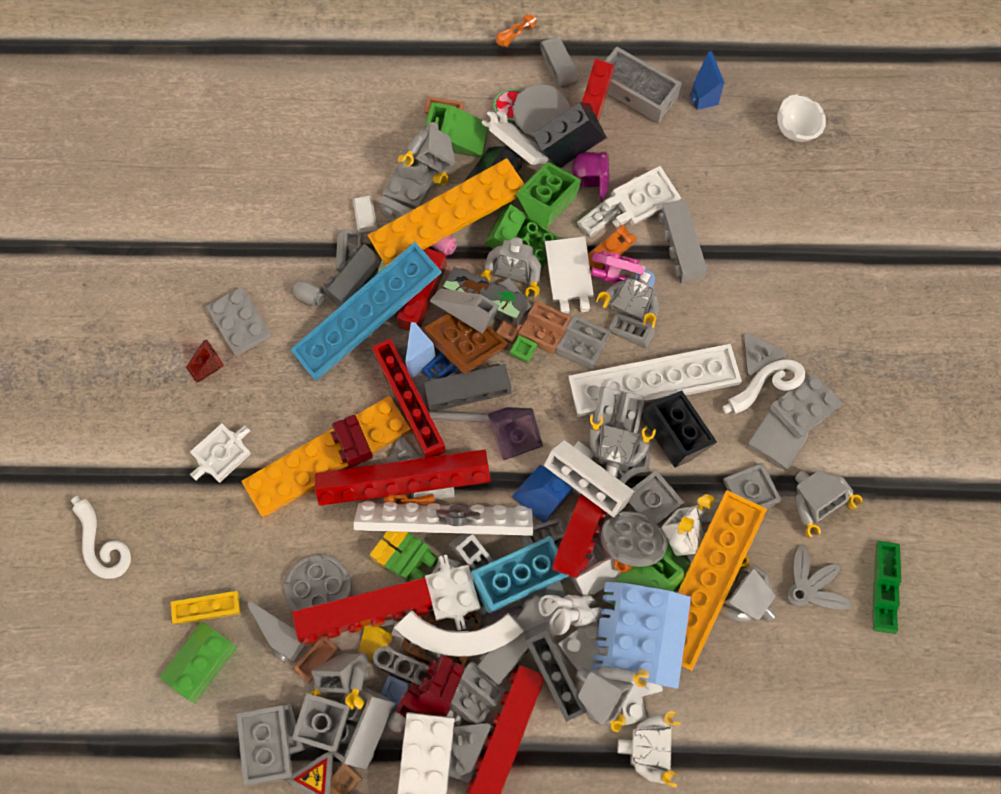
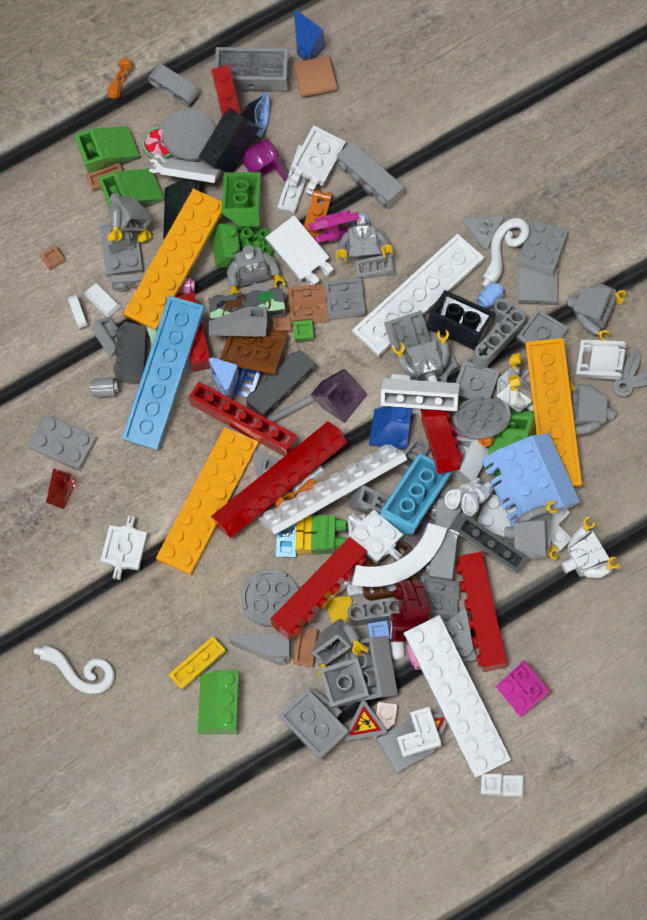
camera: 30 degrees left, 0 degrees up
(334, 211) = (77, 311): none -> white beam
(348, 152) = (52, 258): none -> nougat tile
(352, 441) = (222, 475): dark red brick -> none
(366, 543) = (286, 542): none -> medium azure slope
(457, 514) = (343, 477): dark grey plate -> none
(460, 81) = (106, 147): none -> bright green slope
(616, 127) = (258, 112): none -> light blue hat
(692, 123) = (315, 76): none -> nougat slope
(702, 466) = (496, 336): none -> light grey beam
(724, 422) = (490, 295): none -> light blue brick
(798, 556) = (606, 359): none -> white container
(801, 118) = (399, 24): white cylinder -> none

